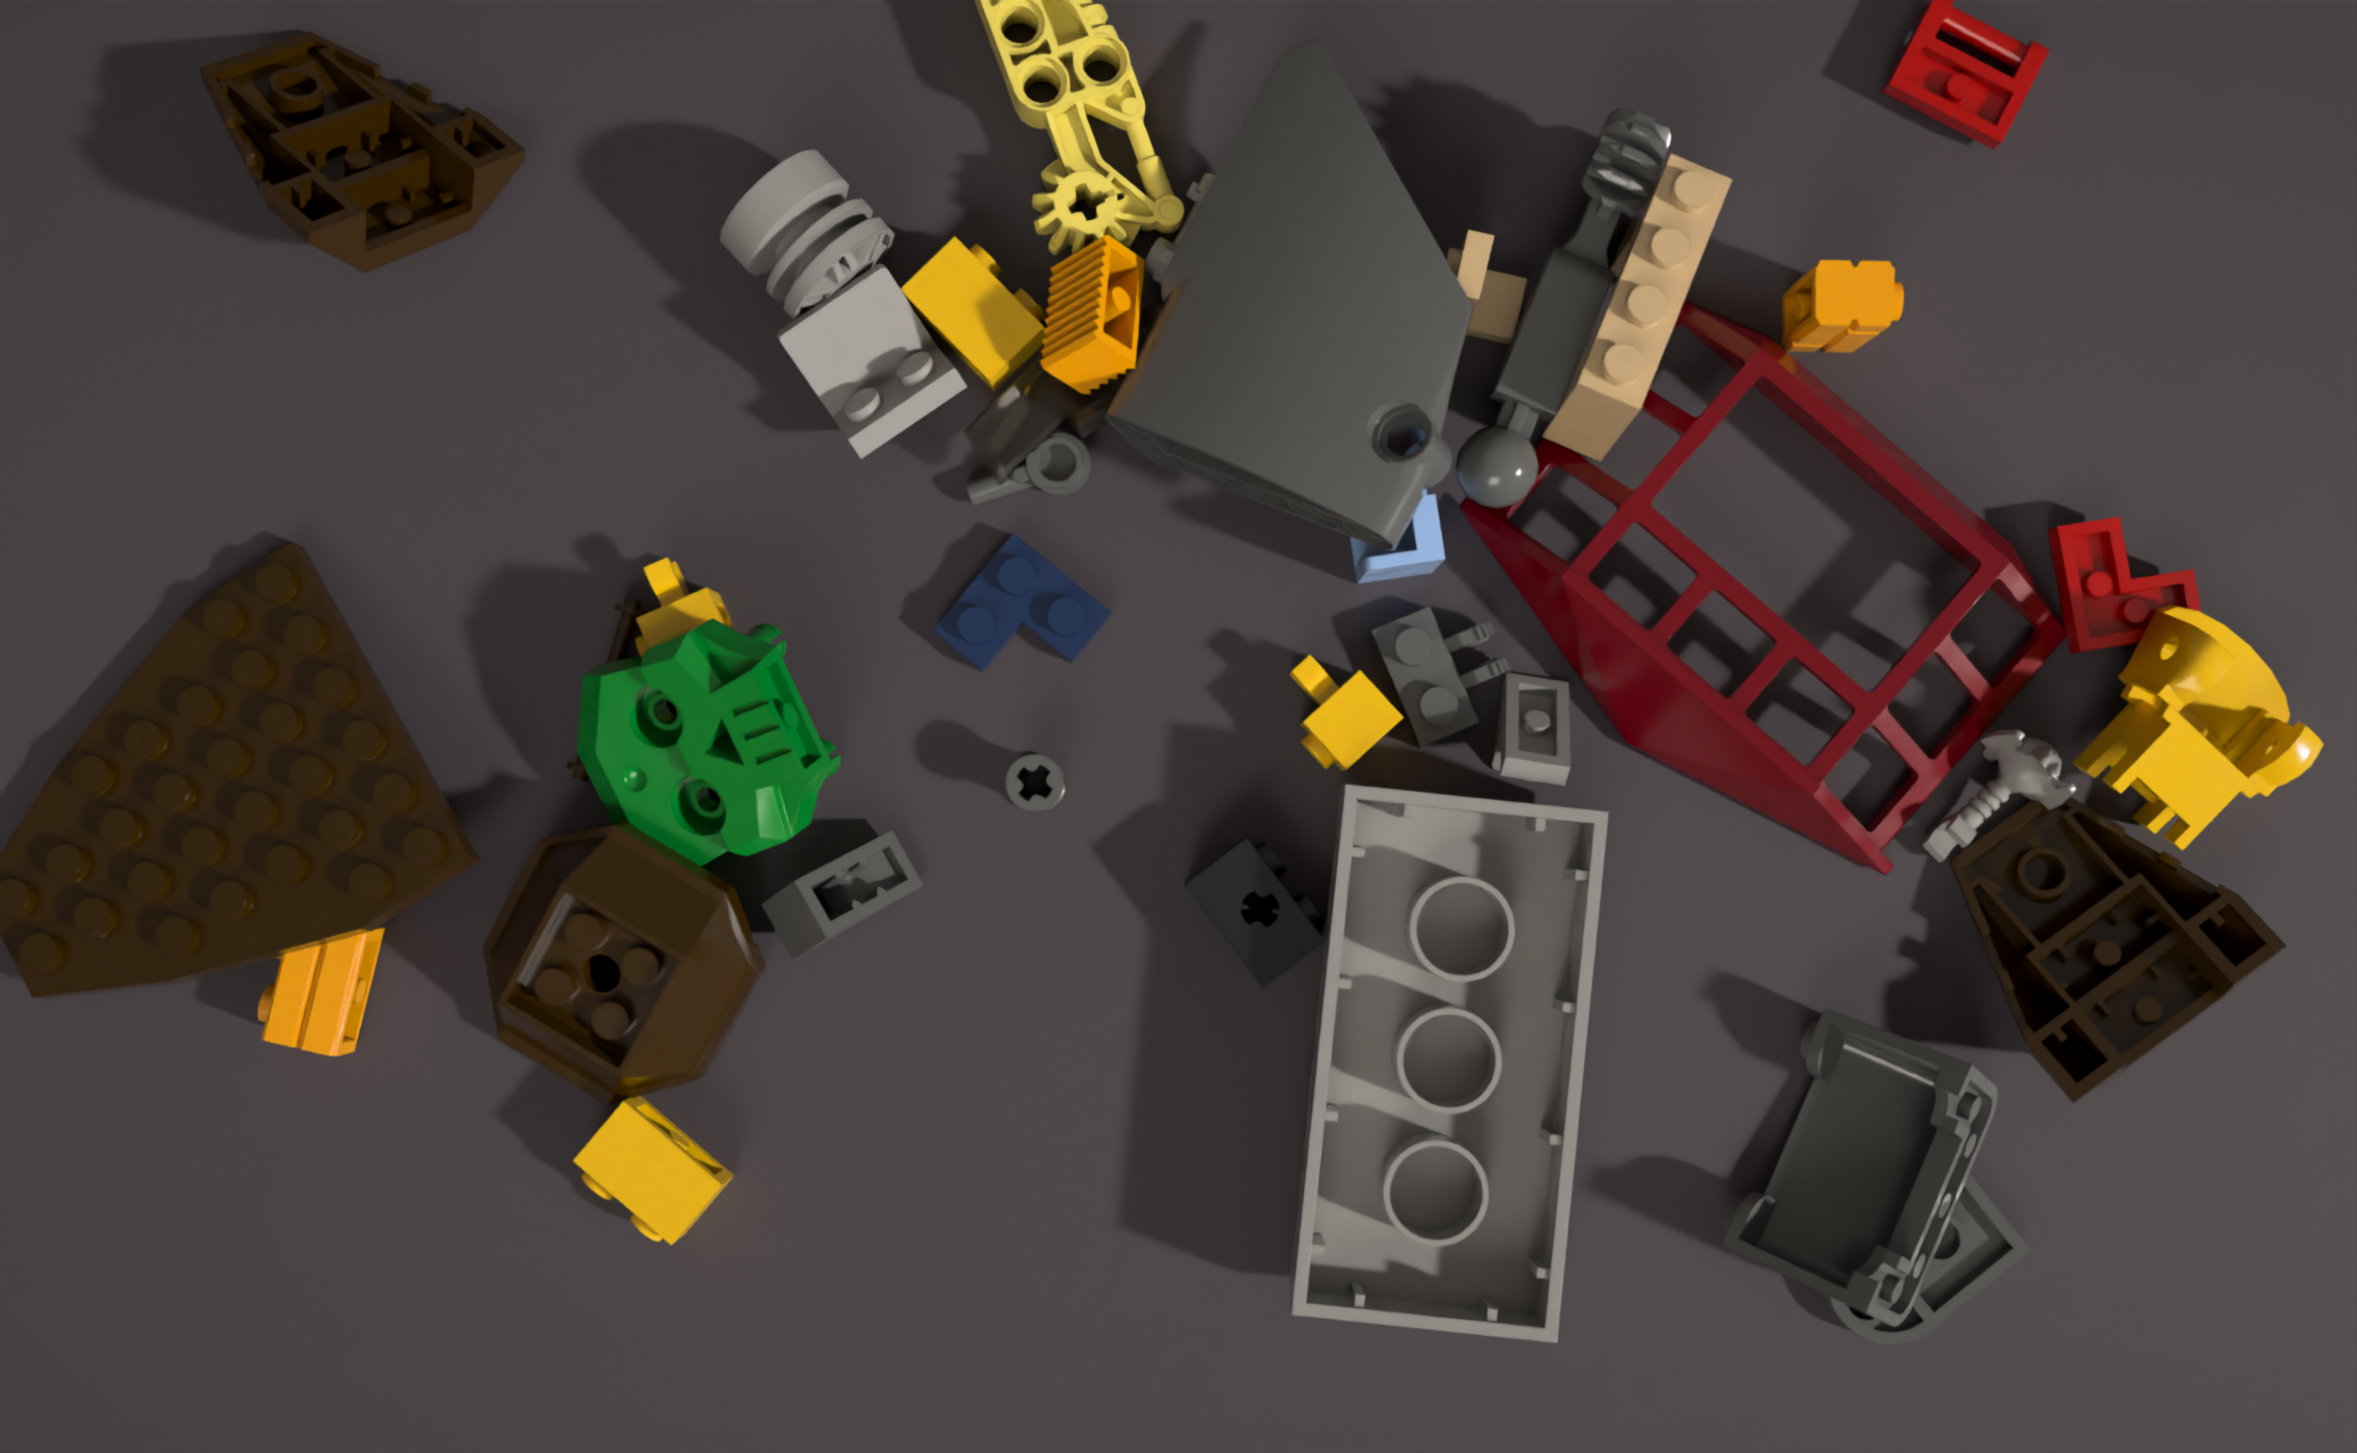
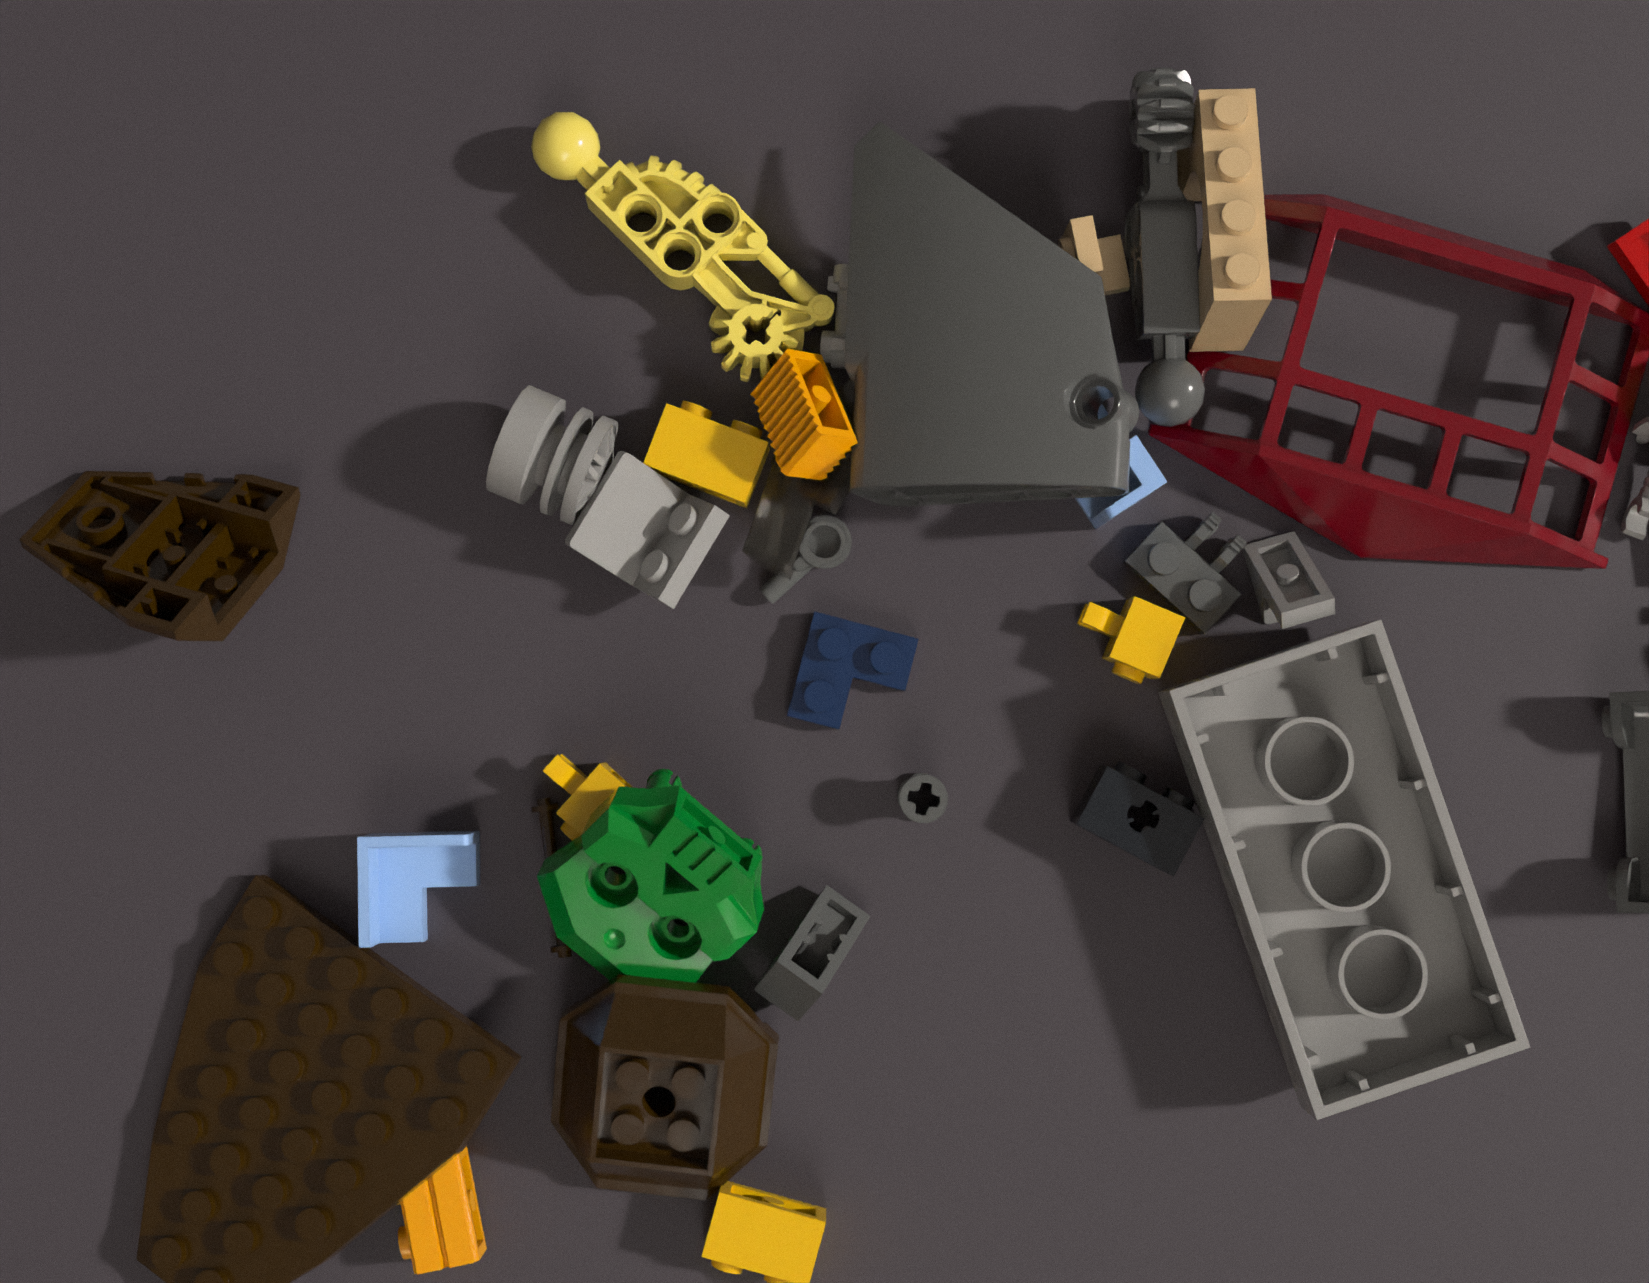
camera: 25 degrees left, 0 degrees up
(436, 613) = (396, 876): none -> light blue panel
(1840, 306) = (1374, 147): light orange brick -> none

